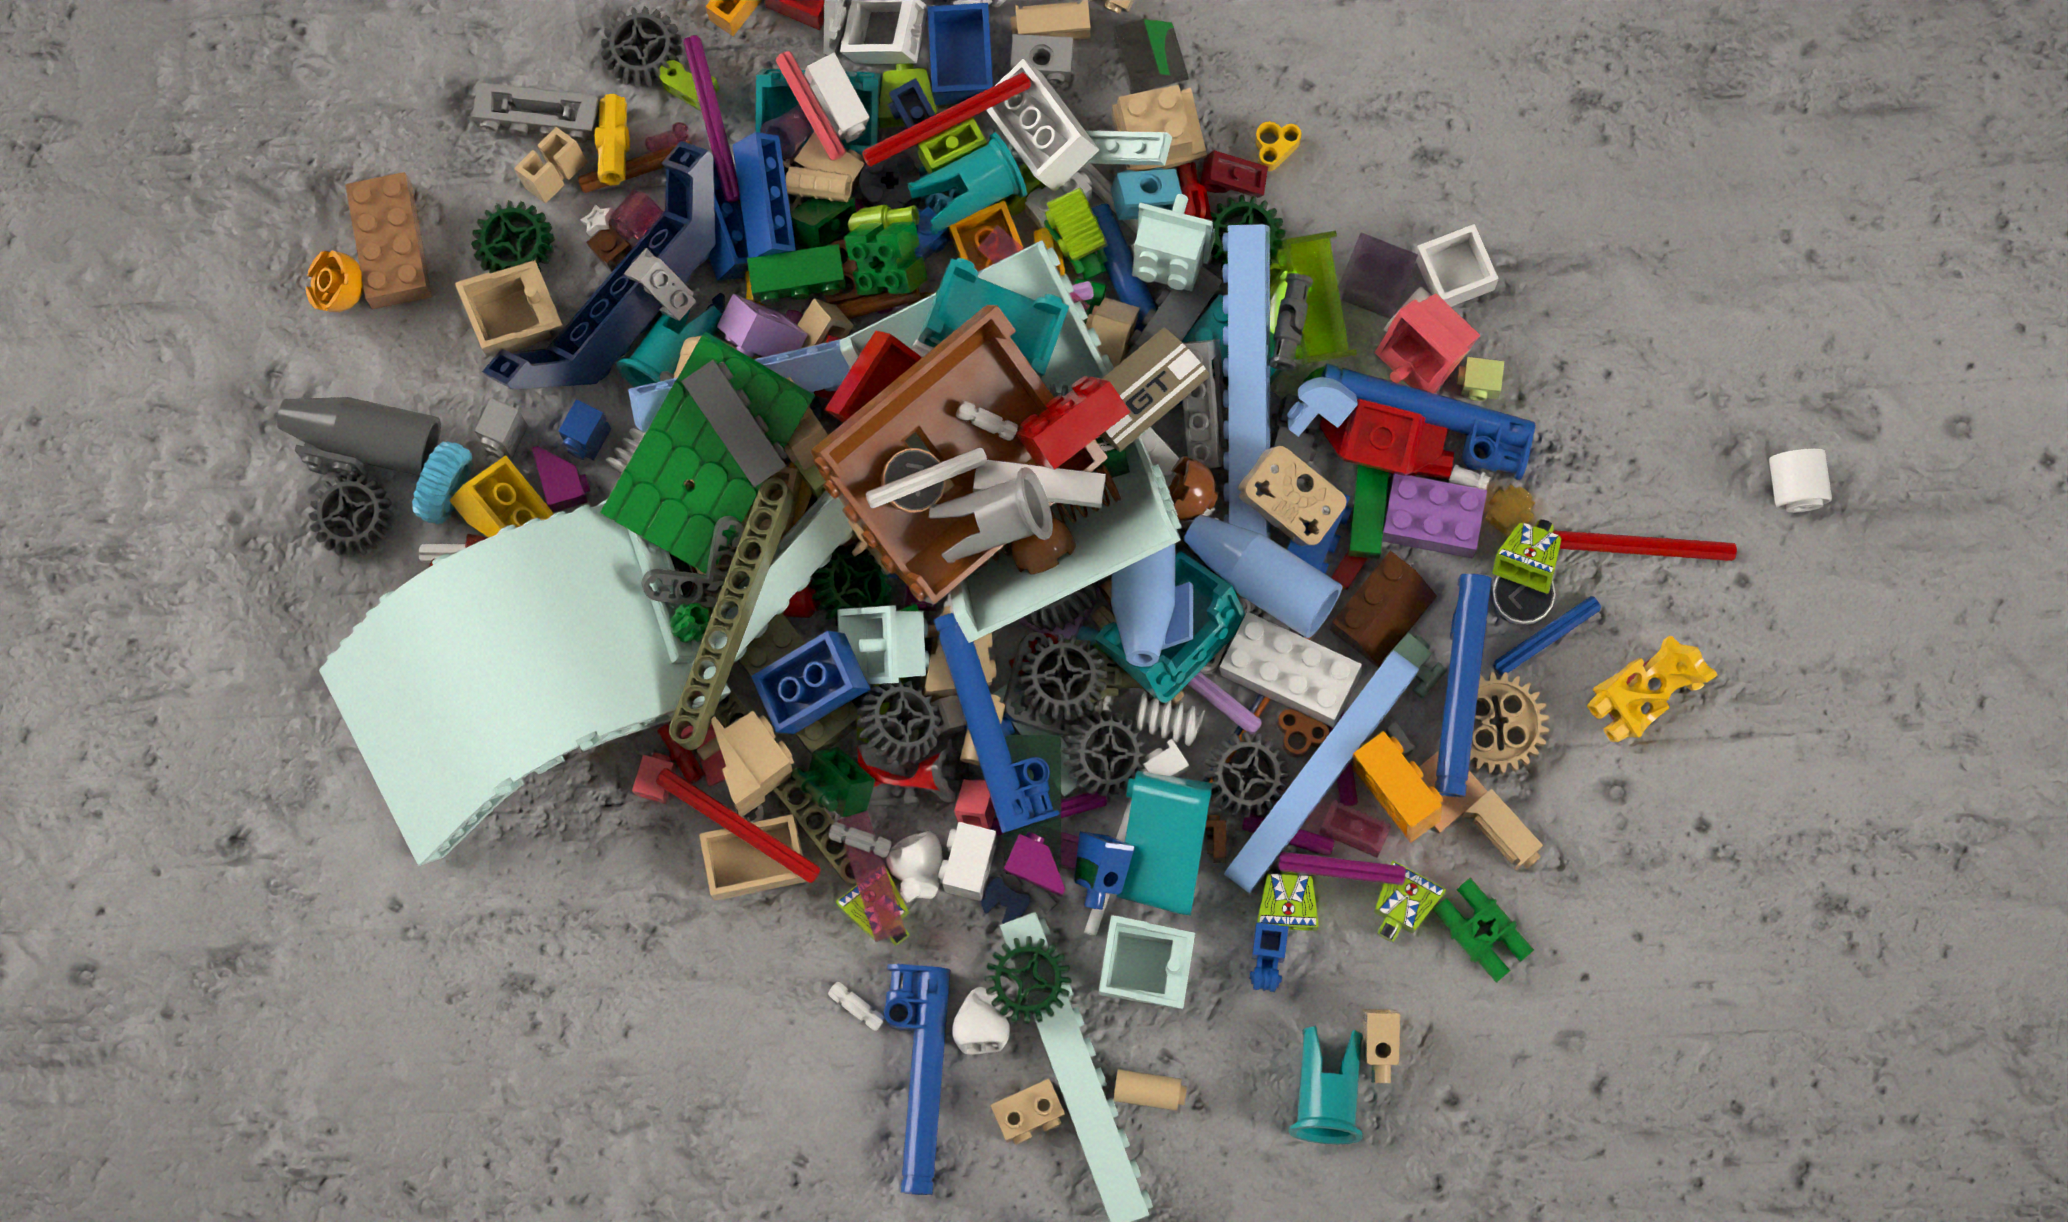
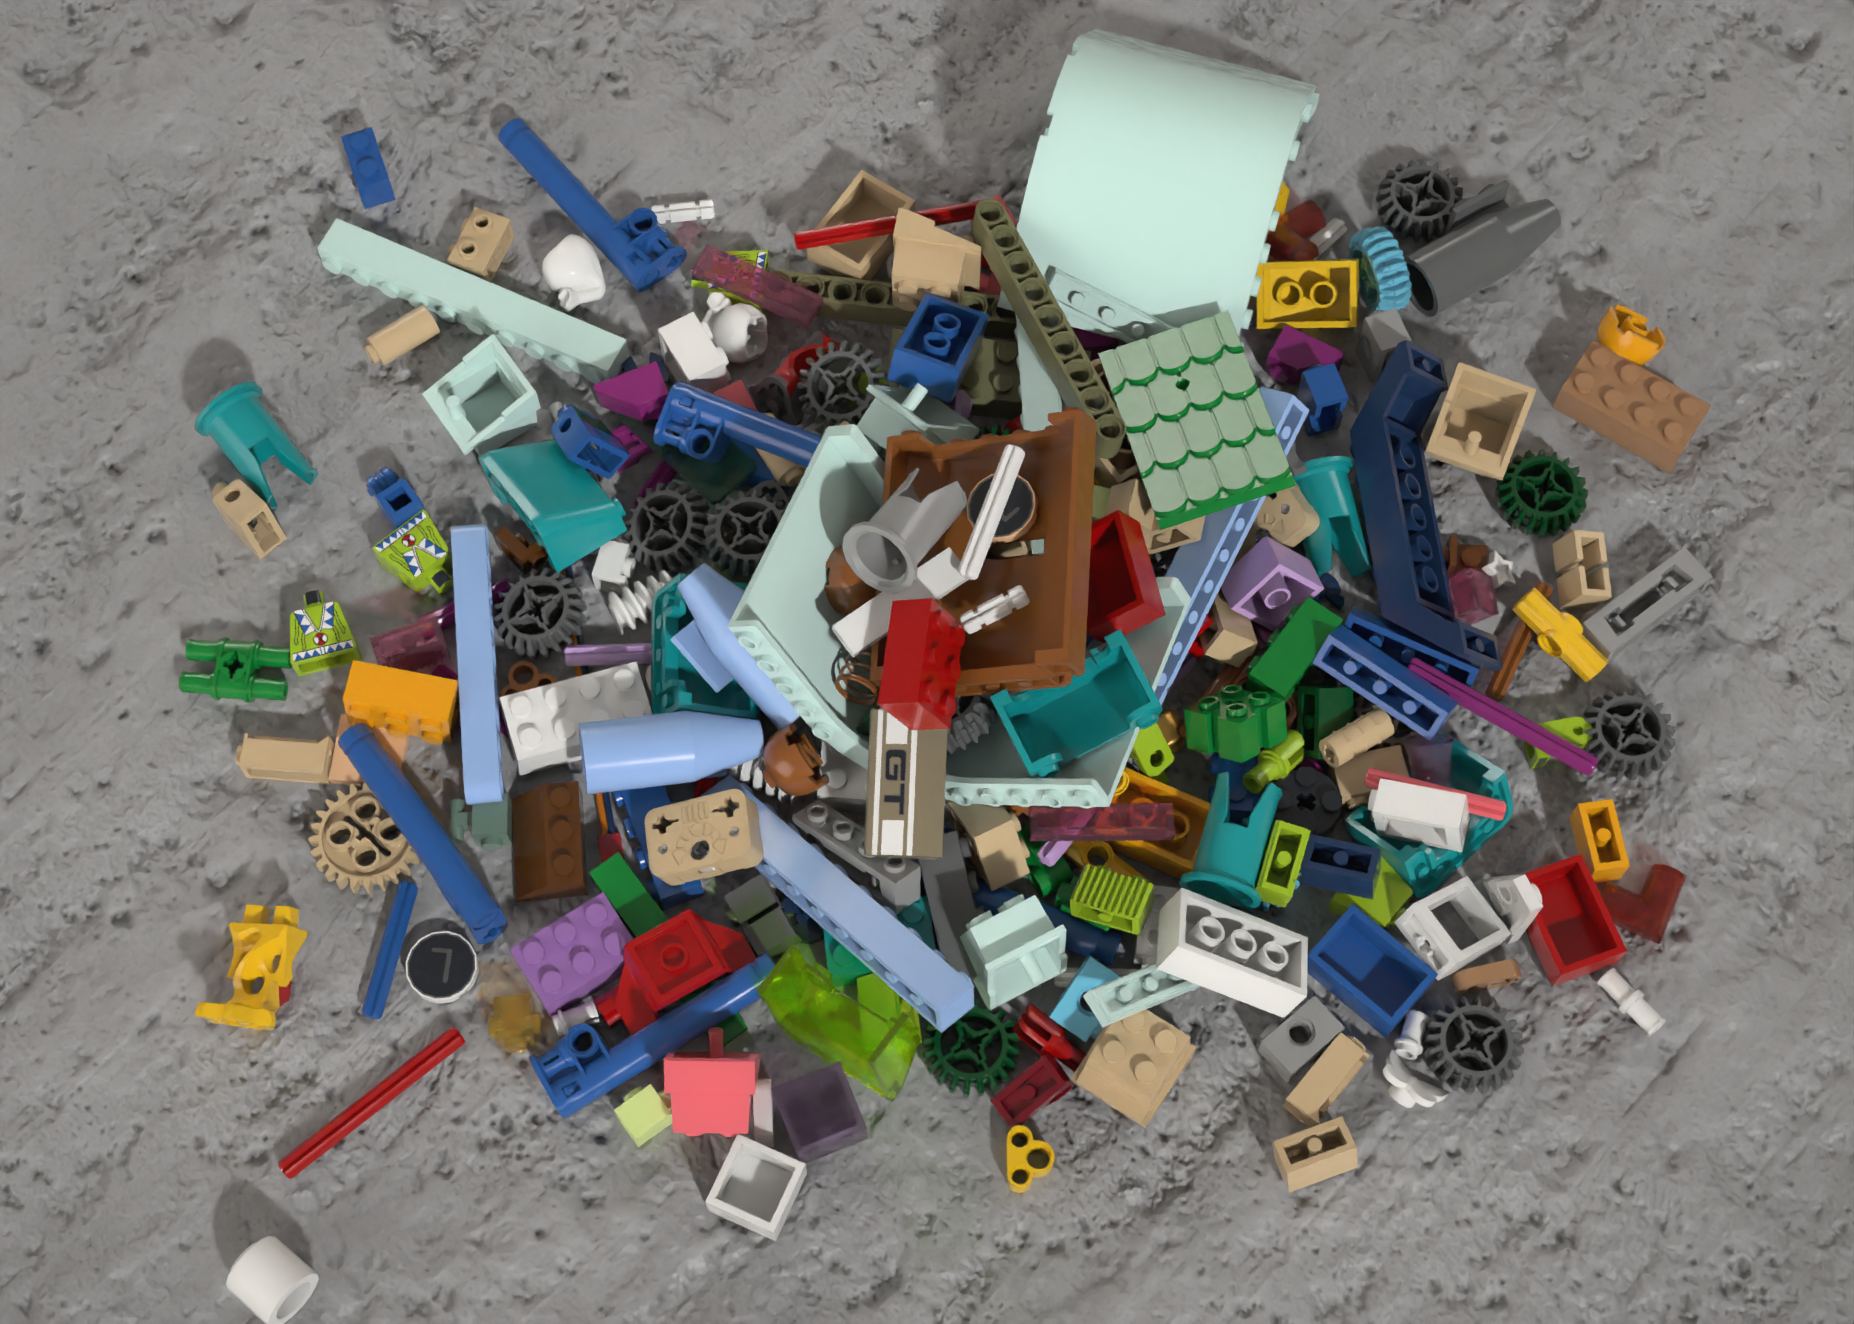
camera: 130 degrees right, 10 degrees down
(662, 284) = (1382, 529): light grey window -> none
(667, 138) = (1520, 687): clear pink arm -> none
(690, 622) = (1071, 293): green gear -> none
(713, 578) = (1095, 348): dark grey beam -> none
(734, 422) = (1194, 438): dark grey brick -> none
(836, 782) = (843, 321): dark green brick -> none
(859, 839) = (789, 293): light grey axle -> none
(946, 119) = (1308, 873): red axle -> none
(1013, 975) = (549, 325): dark green gear -> none
(1149, 54) = (1214, 1132): clear smoke slope -> none
(1290, 322) = (845, 978): dark grey piece -> none
(1323, 397) = (751, 940): light blue brick -> none
(1342, 868) = (390, 602): magenta axle -> none
(1396, 731) = (439, 751): dark grey tile -> none
(1529, 556) = (459, 993): lime torso -> none

